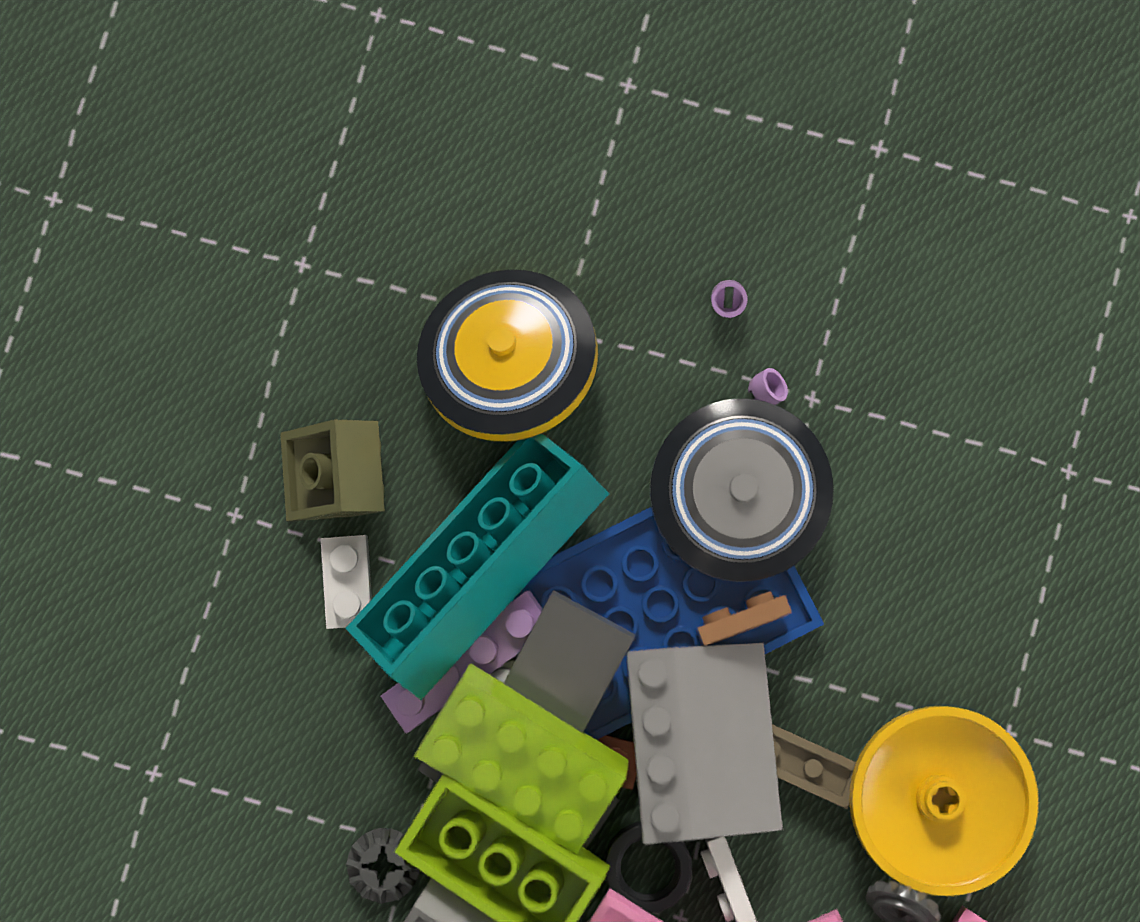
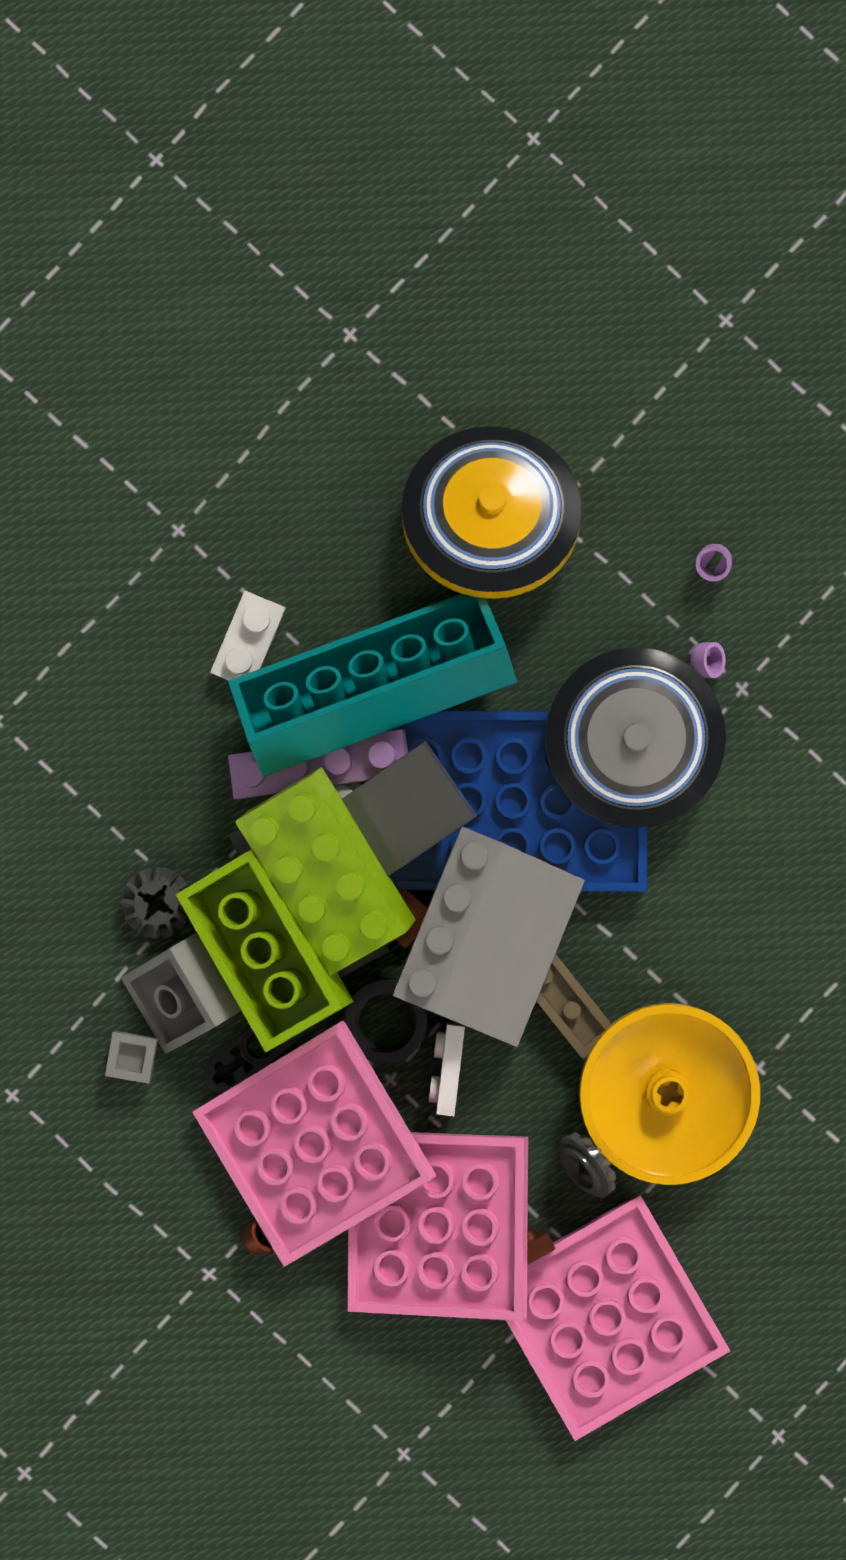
camera: 25 degrees right, 5 degrees up
(332, 470) = (284, 535): olive slope -> none
(760, 611) = (596, 851): medium nougat plate -> none

